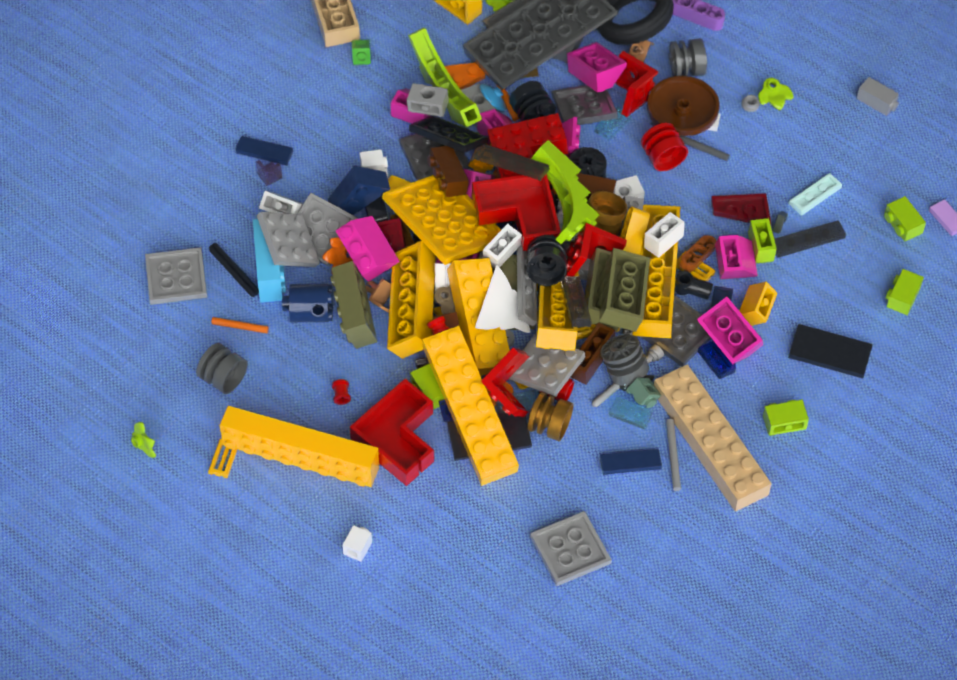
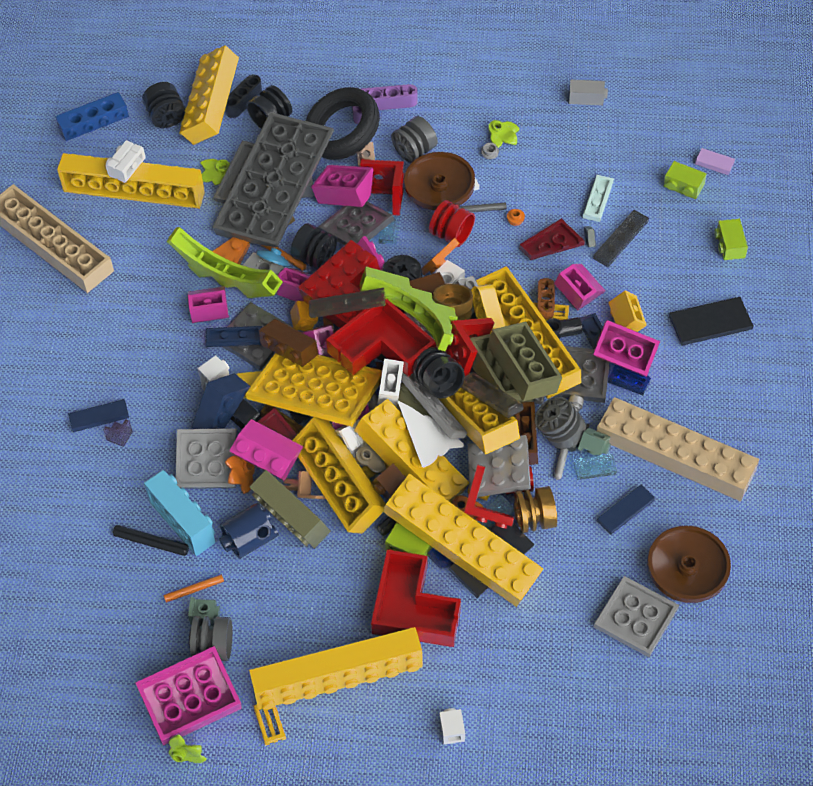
camera: 30 degrees left, 0 degrees up
(173, 400) = (189, 695): none -> dark pink slope
(175, 276) = (100, 577): light grey plate -> none
(234, 343) = (210, 607): none -> sand green brick
(279, 204) = (155, 456): white brick -> none
(288, 239) = (189, 483): light grey plate -> none
(341, 392) = (333, 595): red bush -> none
(361, 52) = (124, 280): bright green bracket -> none
(410, 142) = (232, 336): none -> dark blue tile
(427, 100) = (224, 289): light grey brick -> none
(438, 325) = (388, 485): red wheel -> none
(448, 134) = (262, 310): black tile -> none
(628, 170) = (438, 260): none -> orange wing
(644, 532) = (689, 564): none -> reddish brown dish
(664, 234) = (518, 296): white brick -> none
(673, 455) = (655, 482): light grey bar -> none
(728, 171) = (515, 217): none -> orange plate
(763, 240) = (591, 258): lime brick -> none
(785, 417) = (721, 396): lime brick -> none

